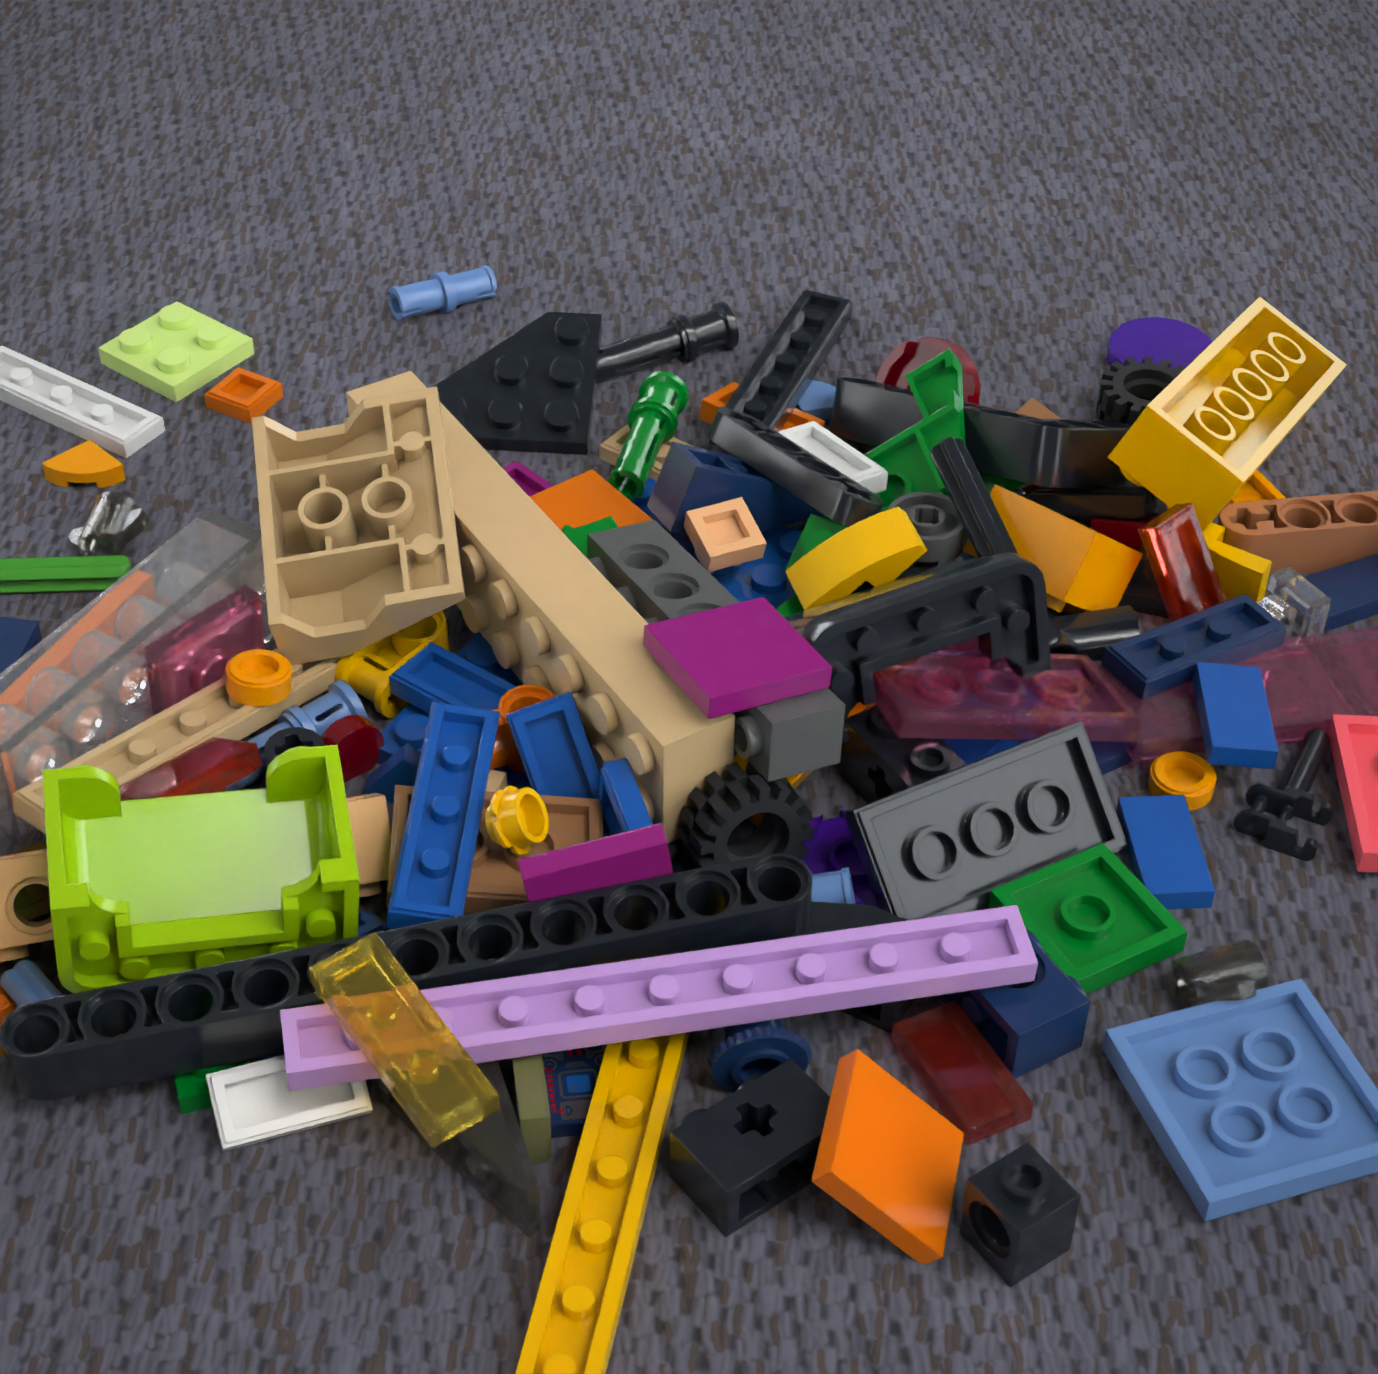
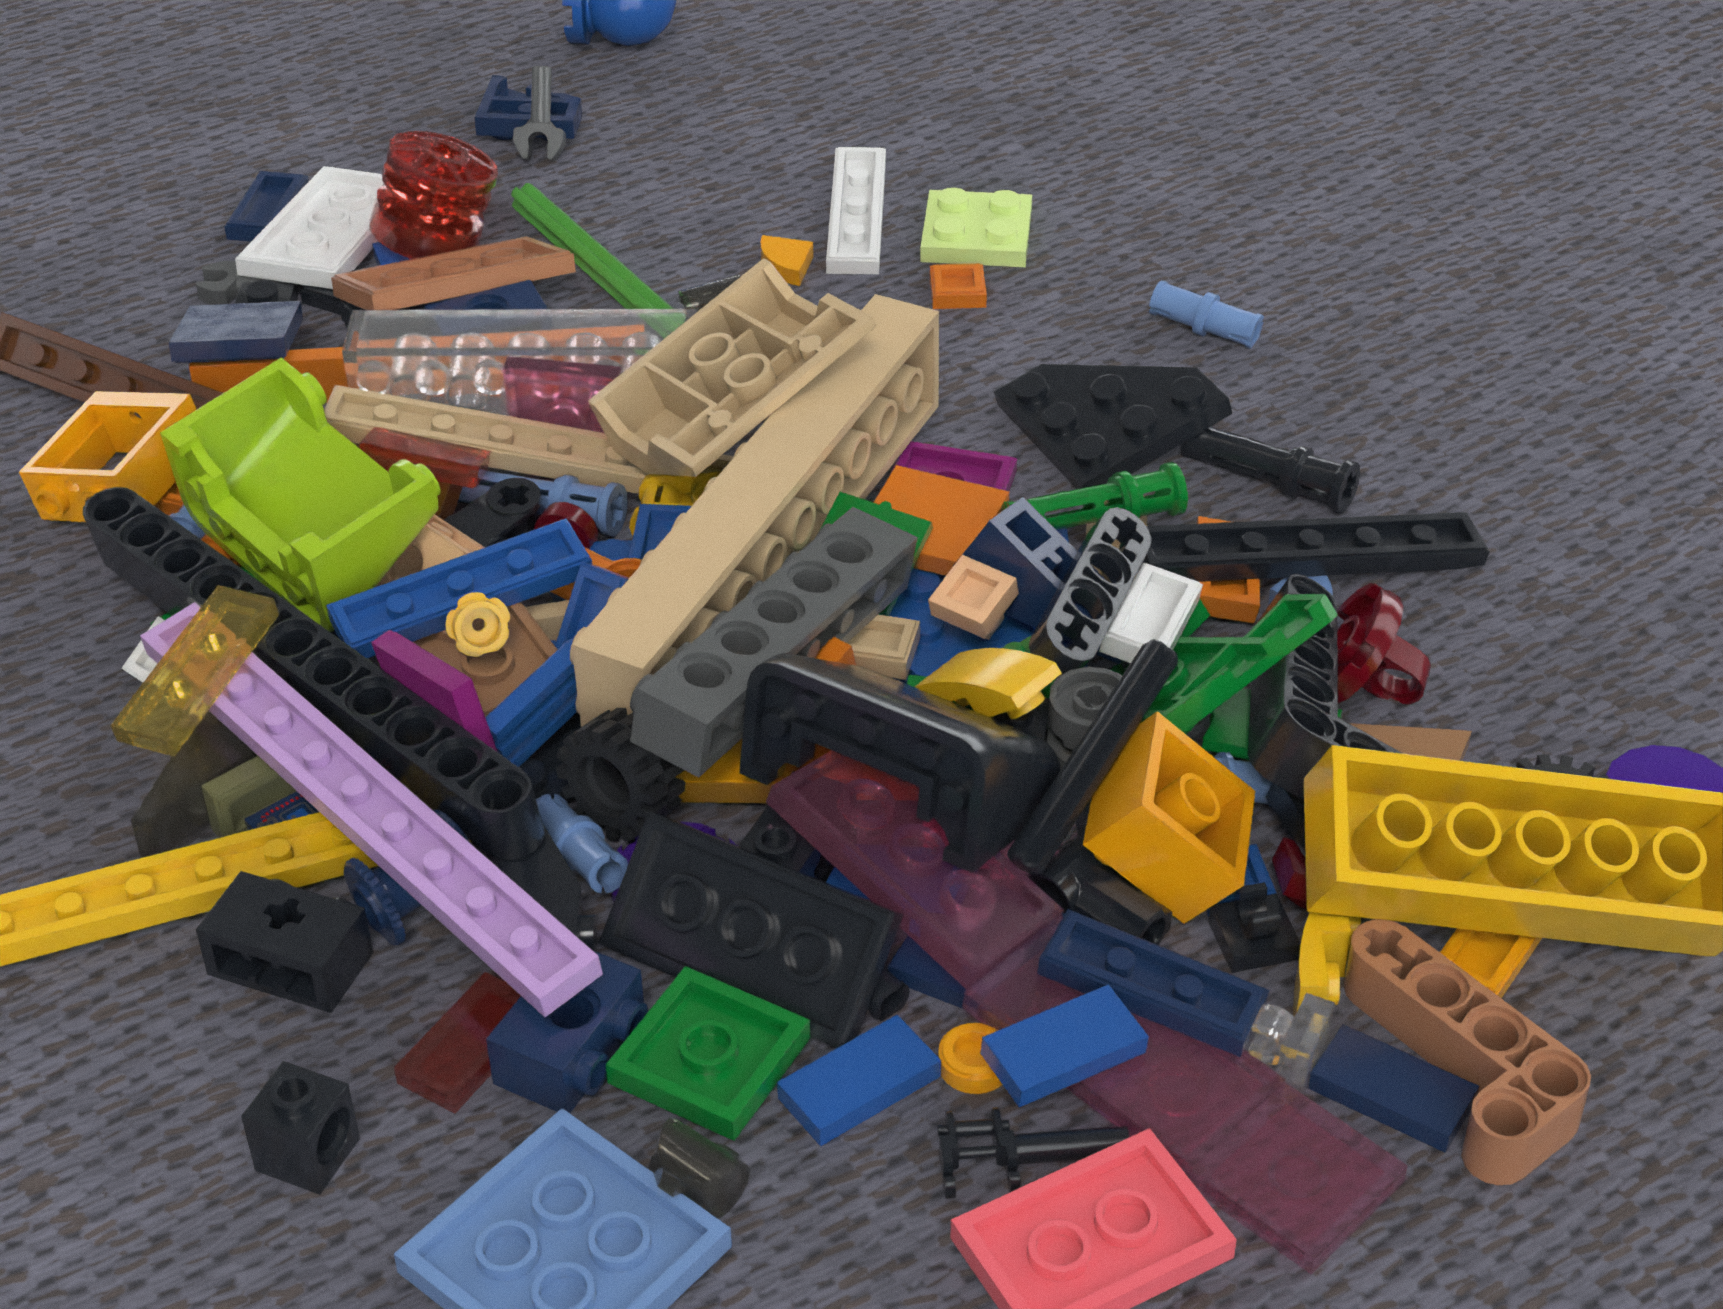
camera: 60 degrees right, 0 degrees up
(258, 677) = (572, 440): light orange tile -> none
(736, 657) = (702, 633): magenta tile -> none
(889, 1157) = (306, 1007): orange tile -> none
(1181, 562) = (1252, 918): clear red tile -> none

